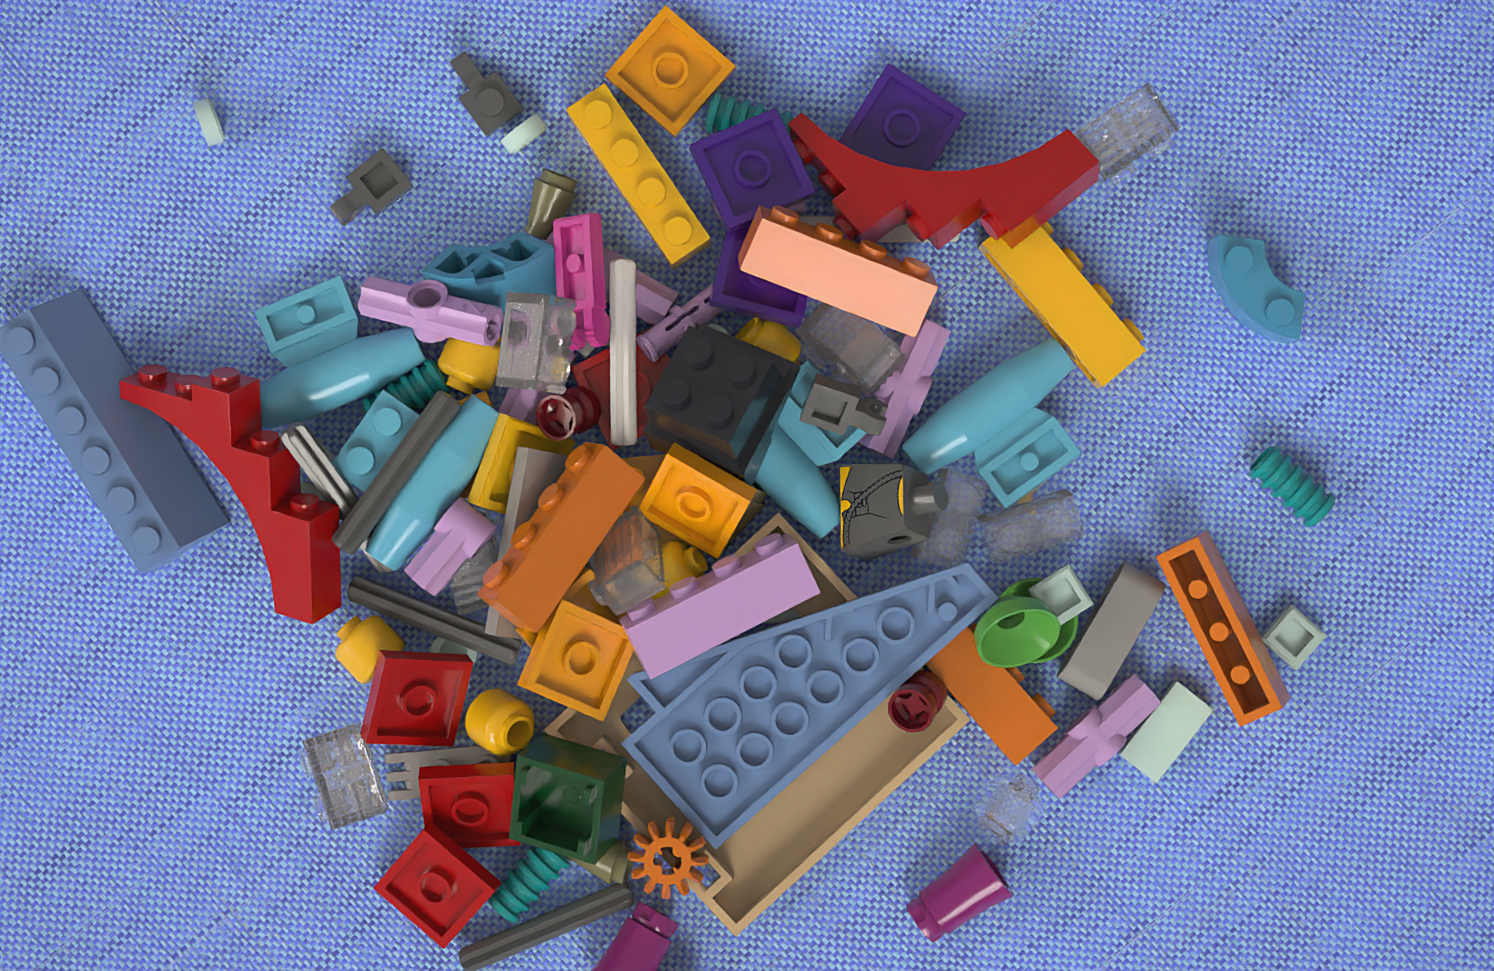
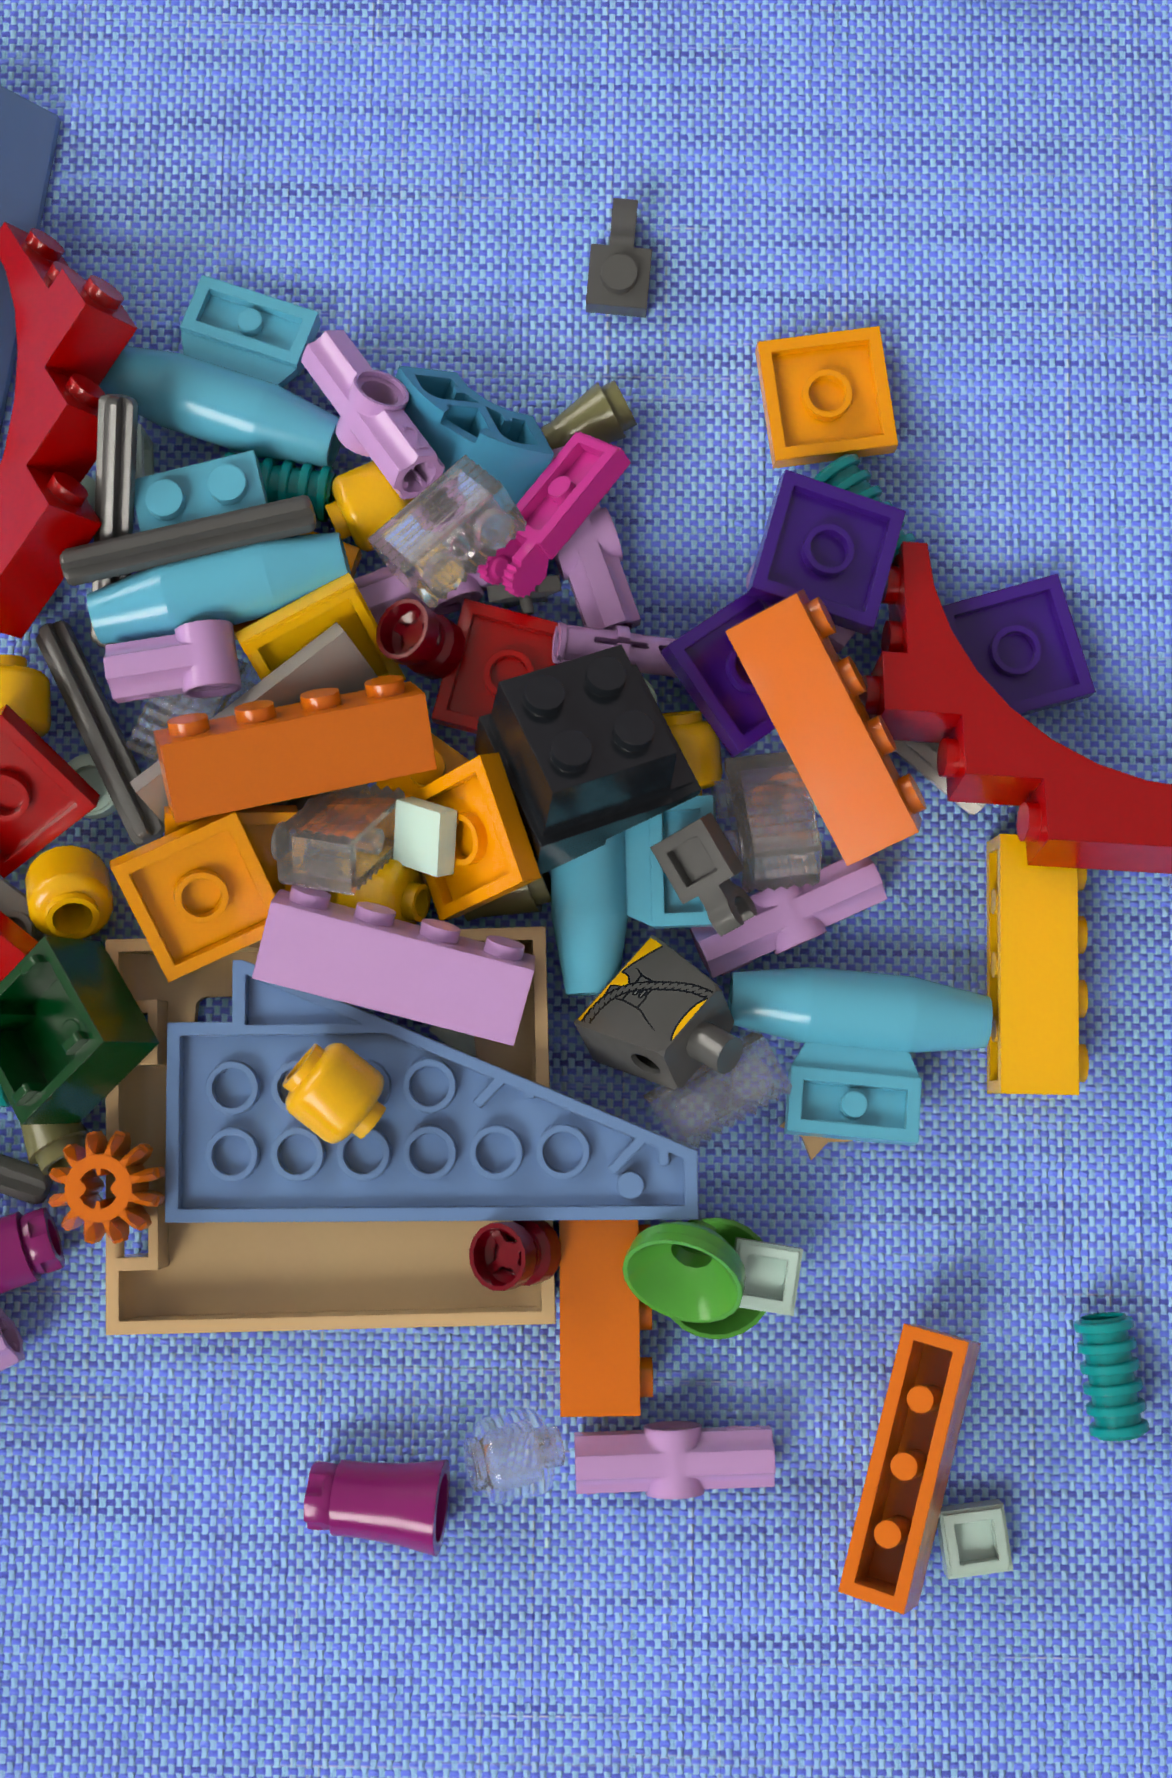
camera: 40 degrees right, 5 degrees down
(209, 122) = (325, 60): light aqua tile -> none
(375, 184) = (433, 257): dark grey plate -> none
(524, 134) = (624, 332): light aqua tile -> none
(623, 352) = (531, 624): white axle -> none
(638, 176) = (703, 469): yellow brick -> none
(671, 521) = (425, 836): none -> light aqua tile
(748, 700) = (334, 1093): none -> yellow head
(1030, 526) = (797, 1174): clear brick -> none
(1111, 630) = (786, 1360): light grey beam -> none
(1165, 731) = (752, 1521): light aqua tile -> none

